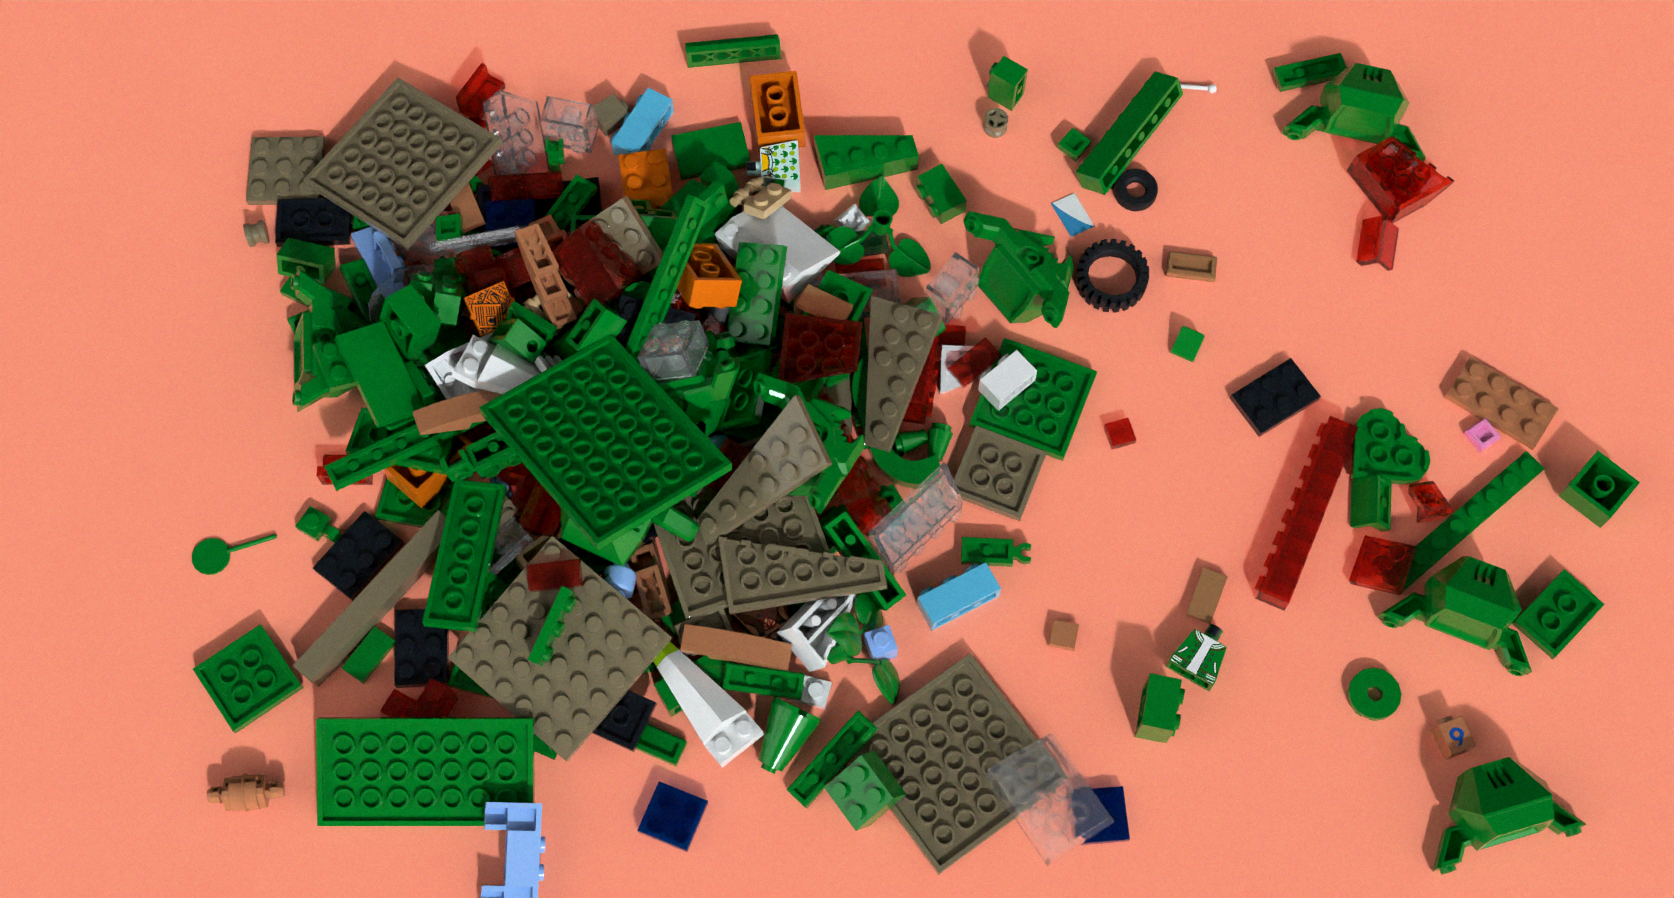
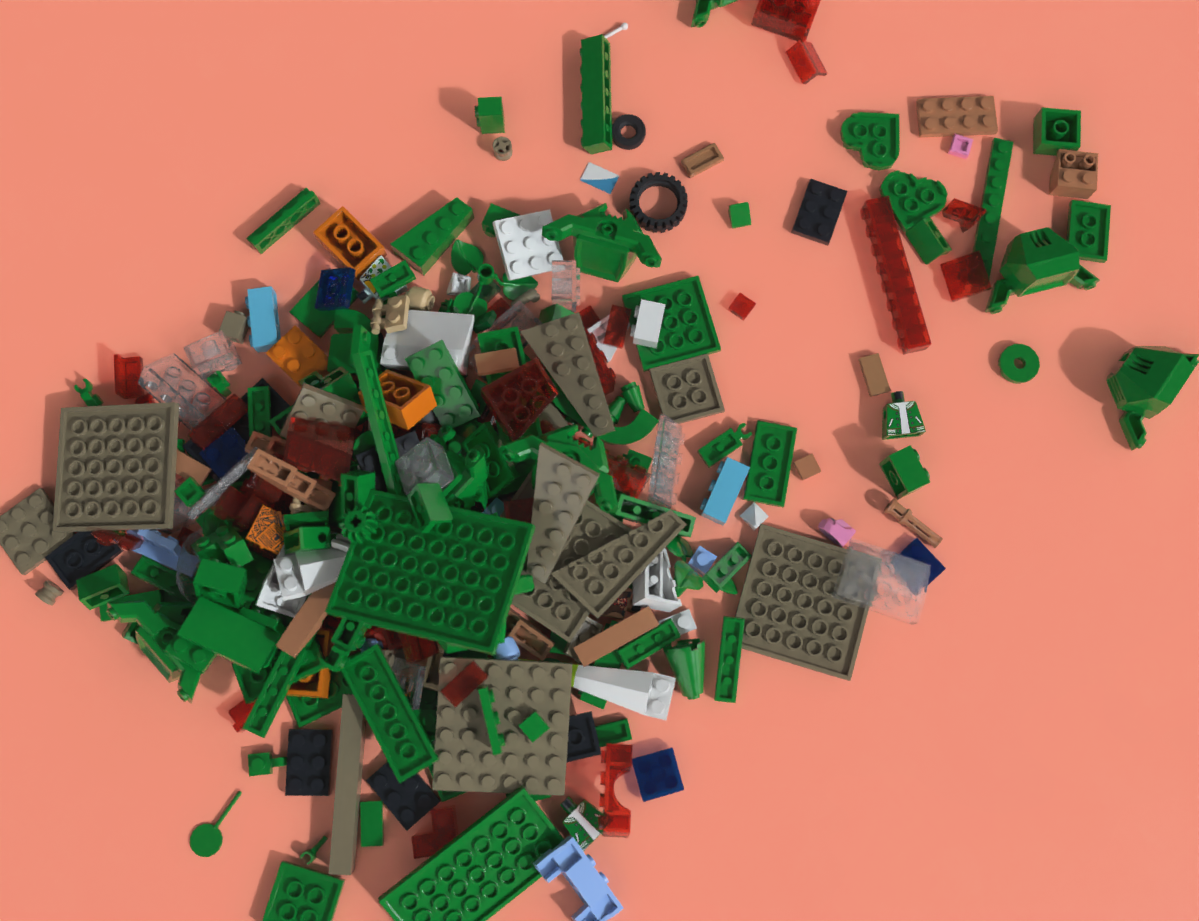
camera: 40 degrees left, 10 degrees up
(294, 640) = (312, 852): none -> green hand
(353, 225) = (126, 540): none -> clear red slope
(430, 83) = (87, 396): none -> green plate
(565, 806) = (581, 821): none -> torso
(572, 352) = (364, 529): none -> green gear
(587, 666) = (533, 726): none -> green tile
(642, 774) = (615, 818): none -> clear red arch
(650, 381) = (429, 506): none -> green panel
(729, 141) = (335, 289): none -> clear blue plate
(790, 168) = (393, 279): none -> green plate
(803, 206) = (420, 299): none -> tan head
(846, 266) = (484, 321): none -> dark green tile
(865, 790) = (767, 665): green brick -> none
(900, 666) = (727, 567): none -> green tile
(913, 276) = (530, 295): none -> dark tan arm
(938, 224) = (524, 247): none -> white plate
(970, 642) = (754, 516): none -> white slope
(1027, 605) = (770, 464): none -> green tile
(1043, 717) = (836, 530): none -> bright pink rock
(1074, 144) = (565, 128): green plate -> none
(1127, 757) = (905, 514): none -> nougat pin
(1391, 363) = (874, 137): none -> green plate
(1453, 737) = (1085, 357): nougat brick -> none
(1586, 544) = (1074, 174): none -> nougat slope

